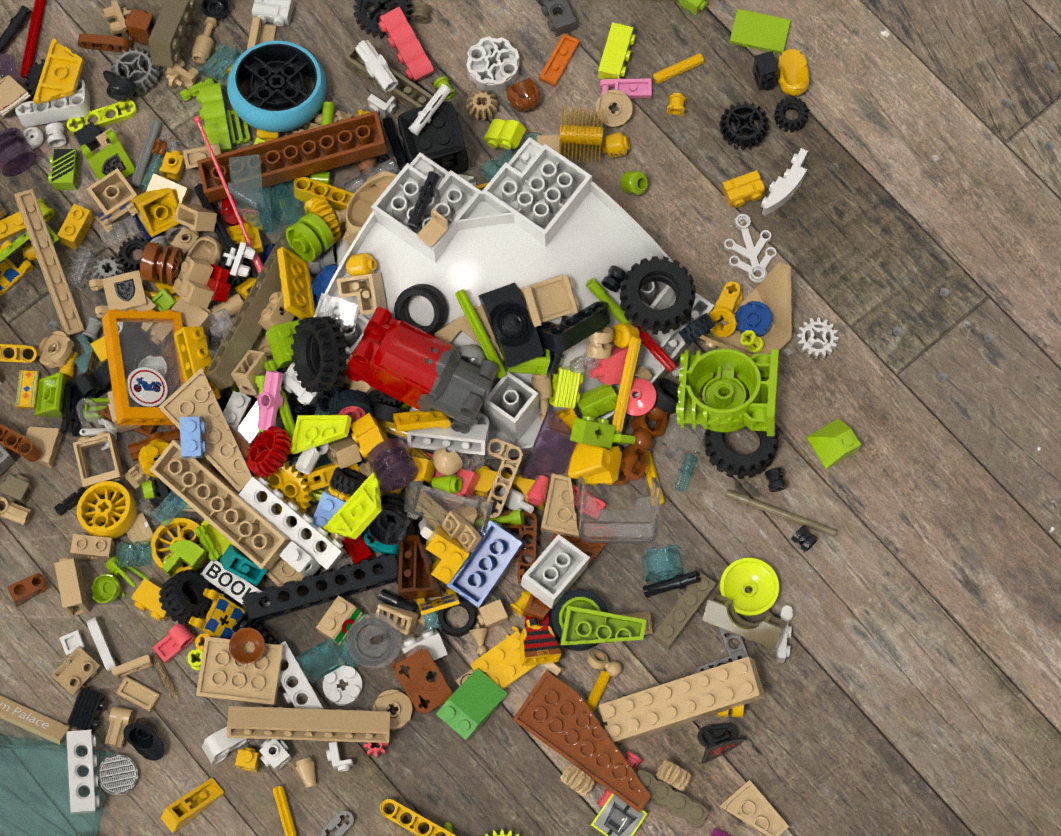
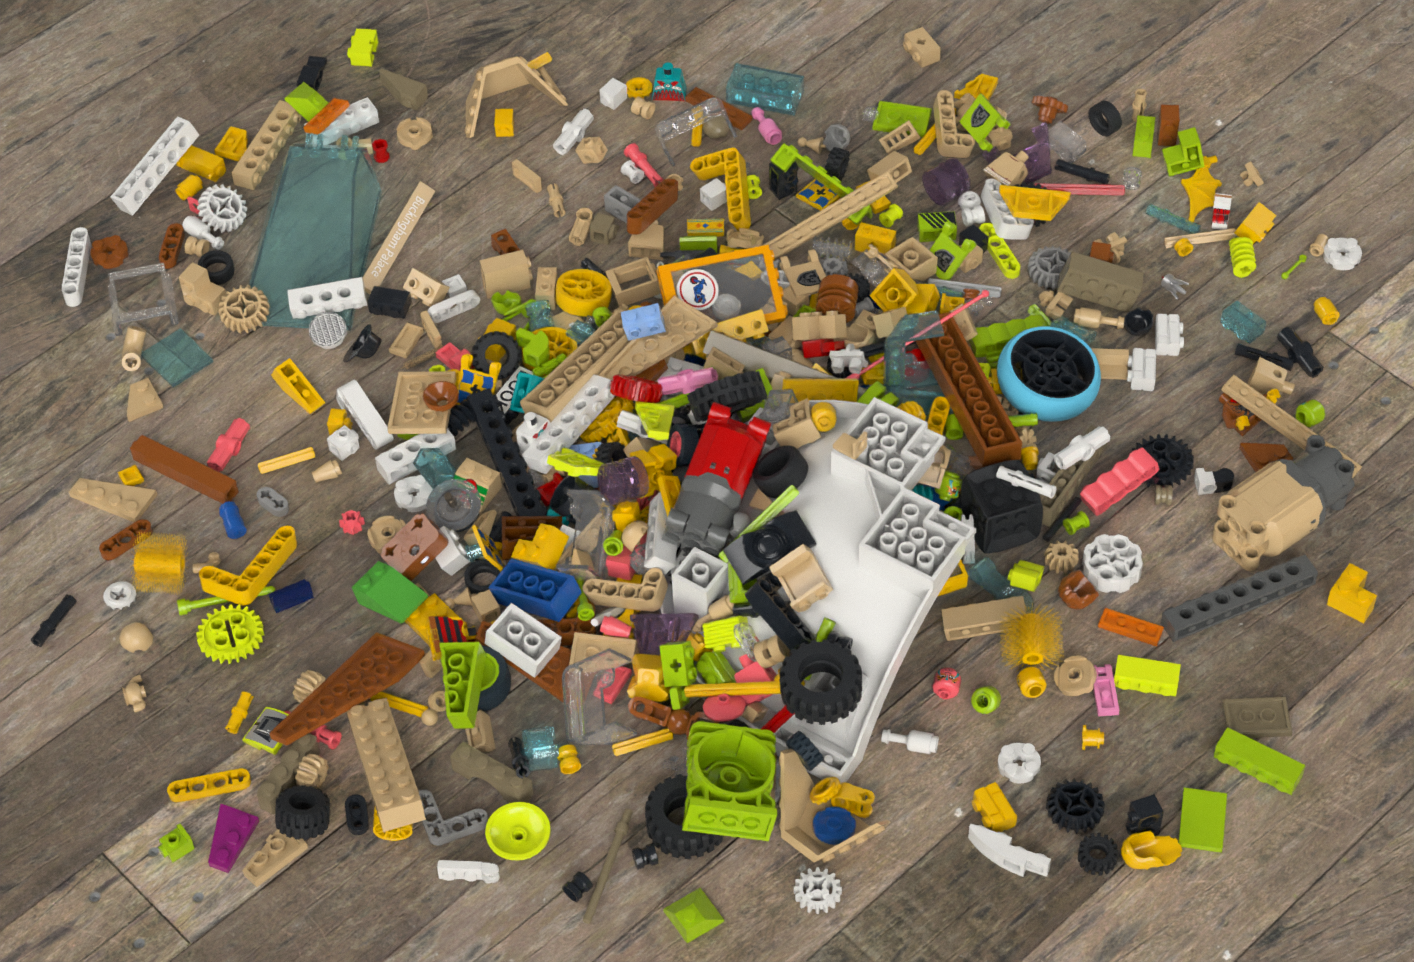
camera: 85 degrees right, 20 degrees down
(103, 42) = (1080, 237): dark orange beam -> none
(118, 720) = (381, 327): tan piece -> none
(120, 87) = (1025, 252): black piece -> none
(308, 724) = (367, 457): tan brick -> none
(334, 755) = (339, 492): white bracket -> none
(423, 199) = (892, 436): black pin -> none
(457, 805) = (291, 595): none -> clear blue panel
(459, 528) = (562, 553): tan slope -> none
(671, 240) = (916, 740): none -> white piece
(673, 539) = (568, 759): none -> yellow wheel
(678, 68) = (1140, 740): yellow axle -> none
(685, 472) = (648, 770): clear light blue axle -> none
(691, 156) = (1023, 752): none -> white plate
(719, 745) = (343, 809): shield -> none
(721, 613) = (484, 803): dark tan arch -> none
(730, 793) = (302, 812): none -> black tyre
(749, 342) = (803, 819): neon yellow bush -> none
(750, 251) = (920, 823): white plant -> none

